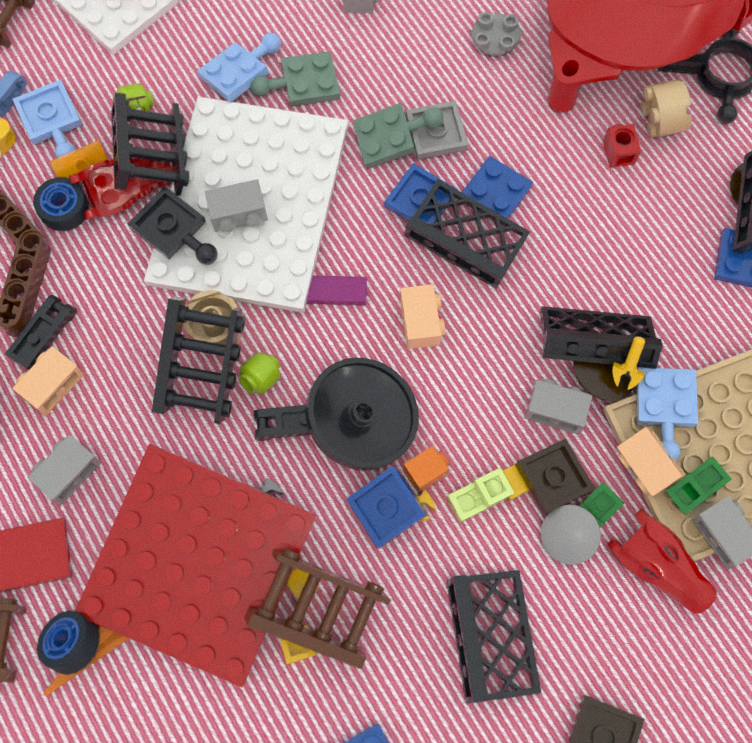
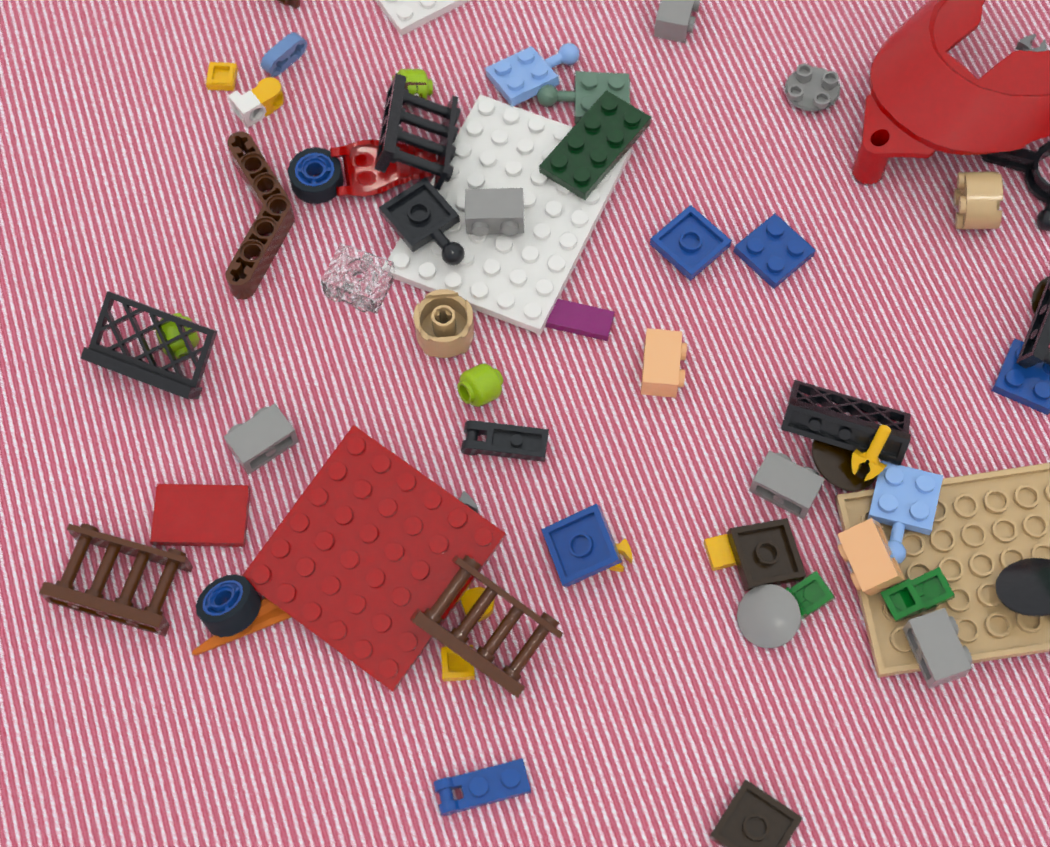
camera: 15 degrees right, 5 degrees down
(40, 332) = (266, 299): black plate -> none
(48, 114) = (323, 83): light blue plate -> none
(48, 381) = (264, 348): light nougat brick -> none
(78, 159) = (343, 134): light orange plate -> none
(131, 308) = (364, 292): none -> clear brick
(170, 369) = (390, 360): black fence -> none
(314, 124) = (595, 145): none -> dark green plate
(361, 414) = (577, 446): black dish -> none
(388, 135) = (671, 169): sand green plate -> none
(426, 469) = (631, 517): orange brick -> none
(441, 140) = (724, 176): light grey plate -> none
(451, 248) = (719, 307): black fence -> none
(468, 642) = (636, 691): black fence -> none
(480, 495) = (682, 557): yellowish green slope -> none
(618, 154) = (921, 240): red brick -> none
(661, 560) = (860, 663): red animal -> none

